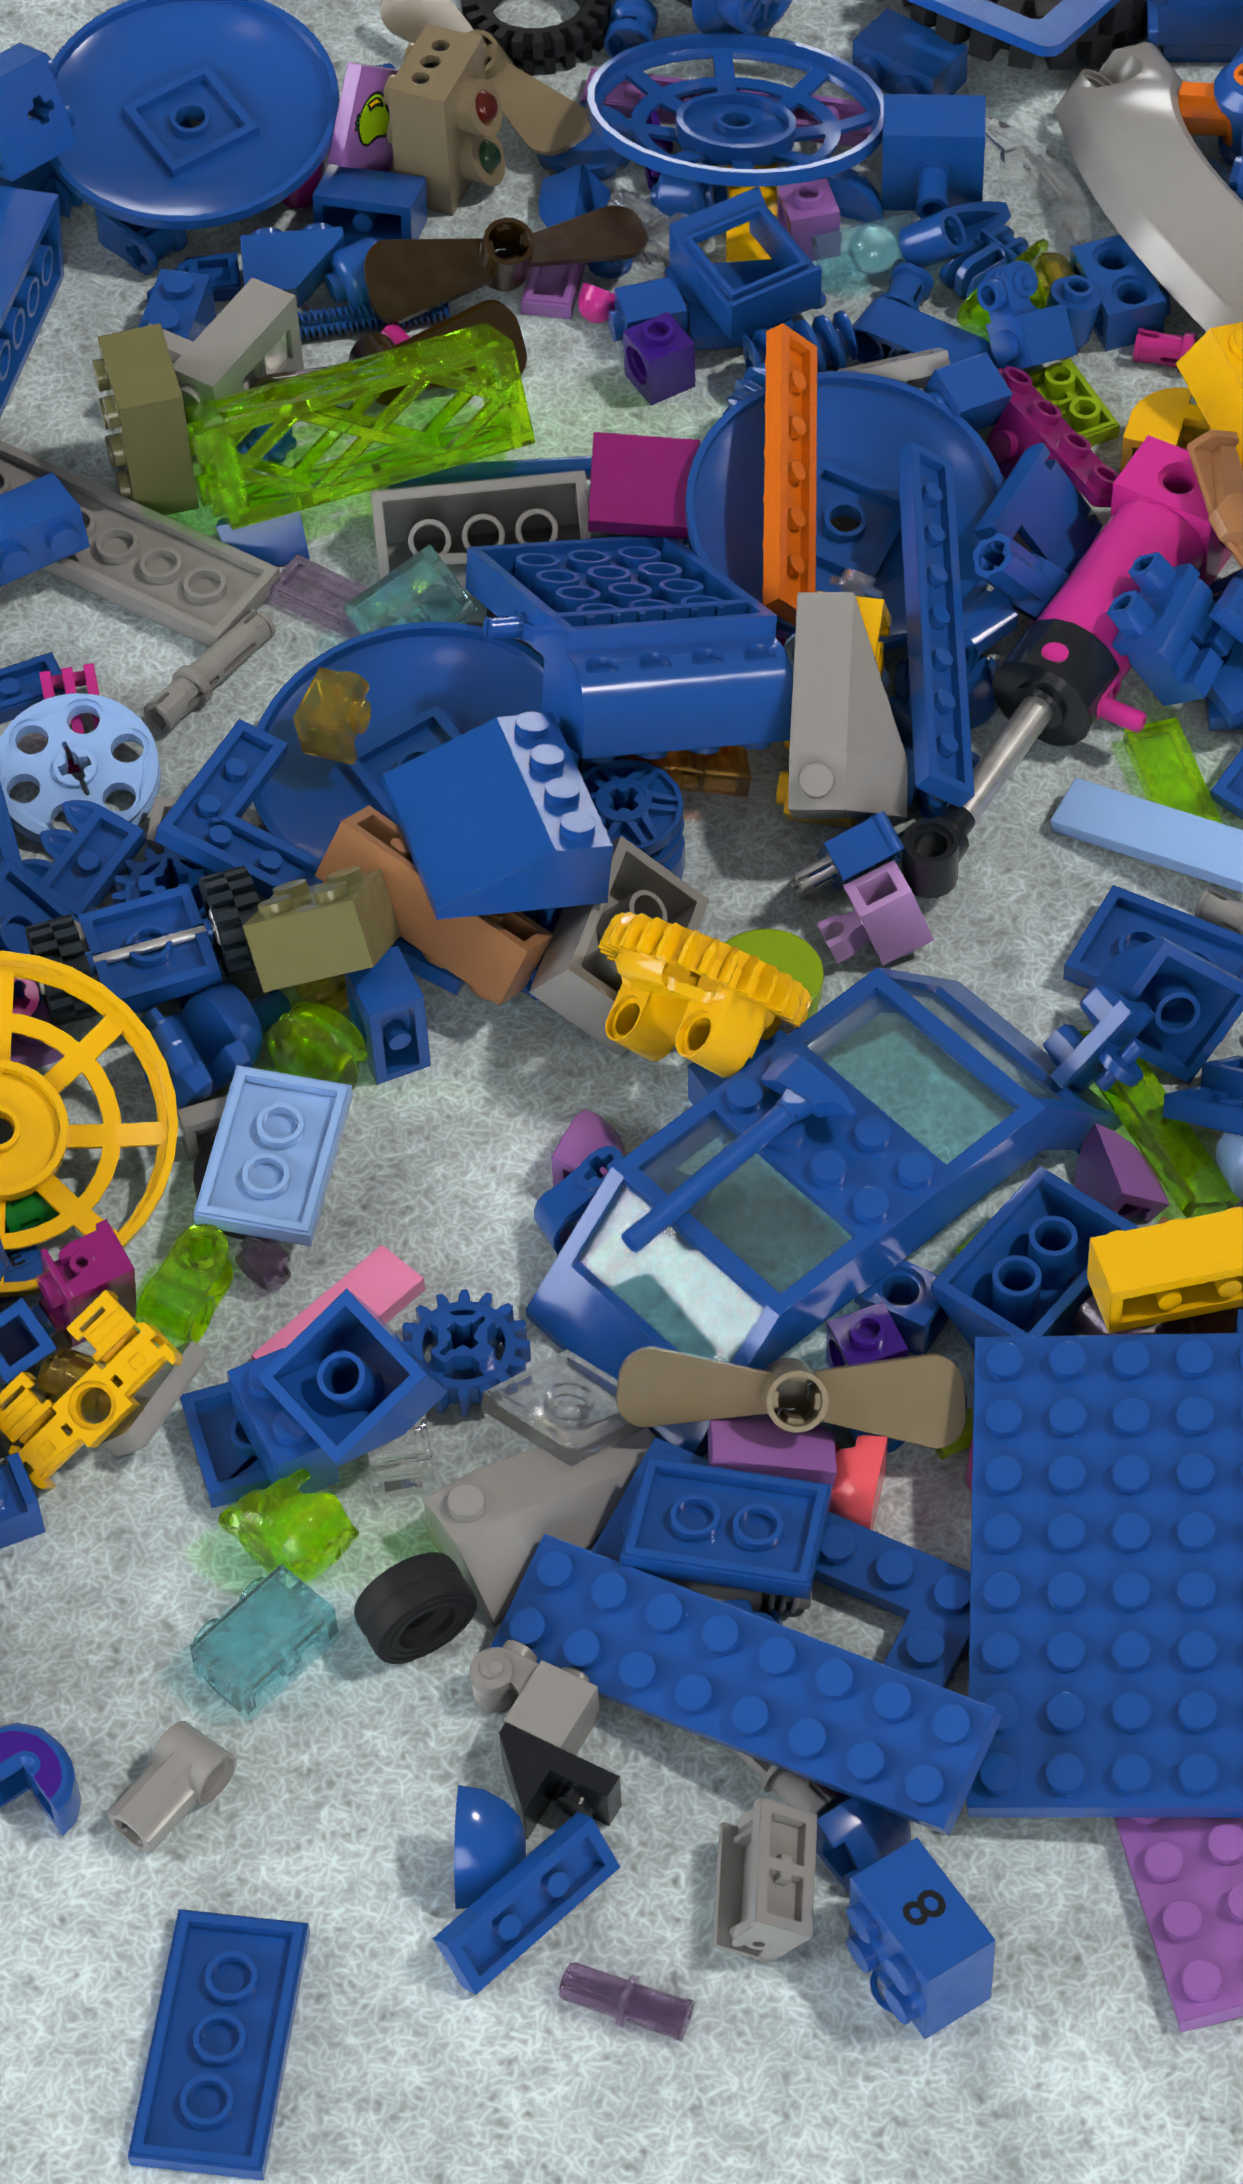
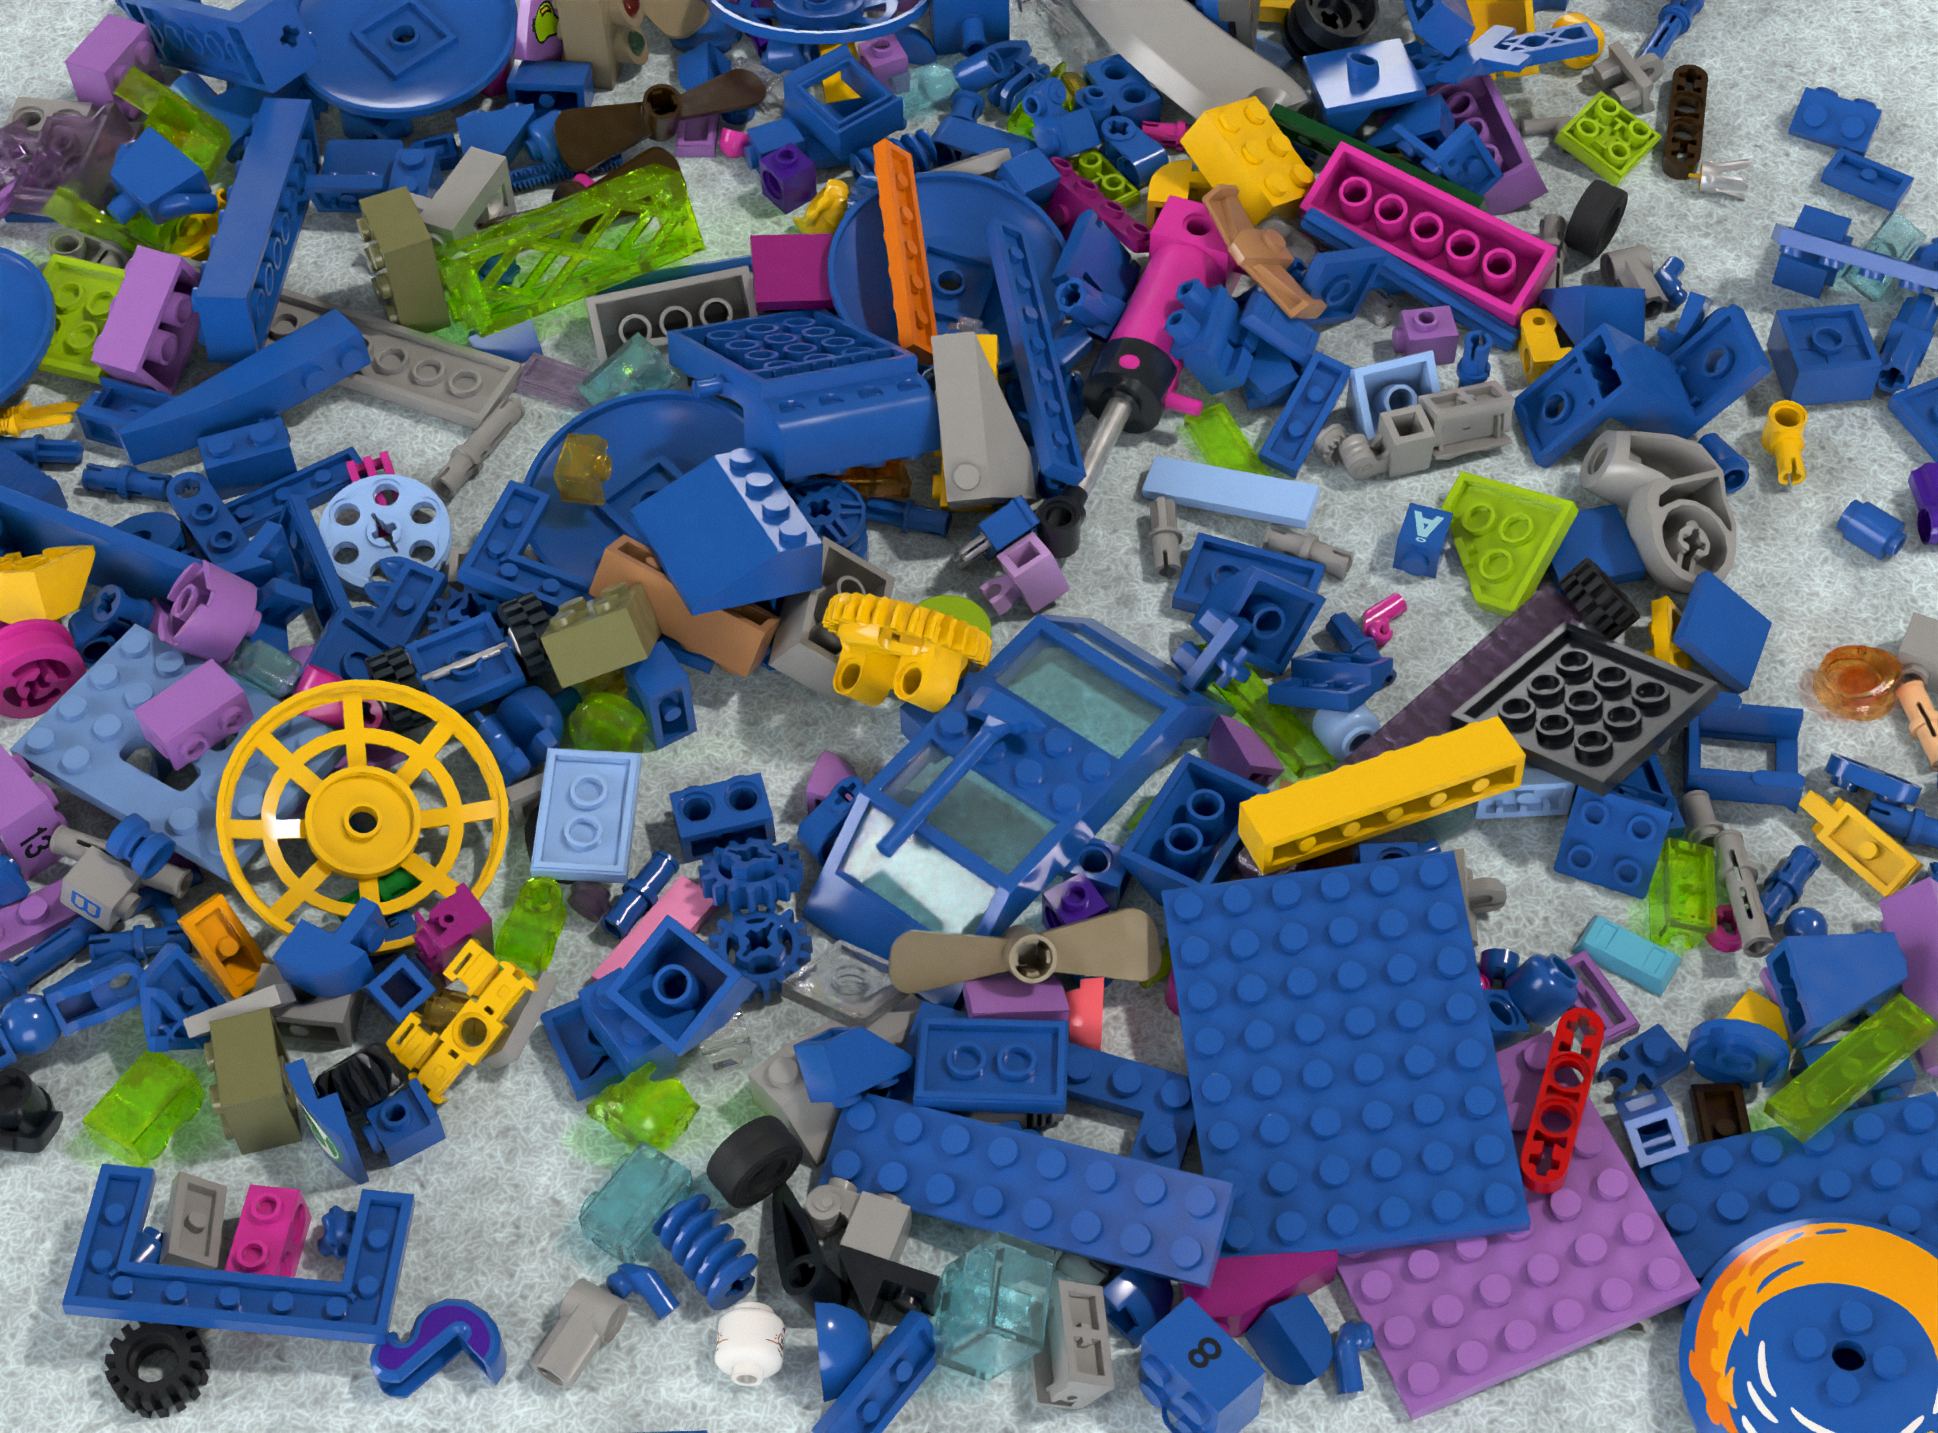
camera: 10 degrees left, 0 degrees up
(100, 294) = (351, 173): none -> blue bracket
(260, 1737) = (644, 1282): none -> blue arm
(326, 1262) = (639, 894): none -> blue pin
(341, 1709) = (707, 1251): none -> blue piece
(376, 1826) = (750, 1343): none -> white head
(443, 1186) = (722, 816): none -> blue brick
(454, 1729) = (800, 1256): none -> black piece
(467, 1254) = (751, 874): none -> blue gear
(547, 1499) = (847, 1062): none -> blue slope
(678, 1820) = (993, 1306): none -> clear light blue brick
(699, 406) = (825, 209): none -> yellow piece
(743, 821) = (908, 516): none -> blue axle
(1017, 1843) = (1250, 1284): none -> magenta slope
(1047, 1913) = (1292, 1341): none -> blue brick
(1069, 887) = (1165, 538): none -> light grey axle
(1110, 1942) = (1346, 1359): none -> blue arm
(1116, 366) = (1131, 150): none -> blue piece

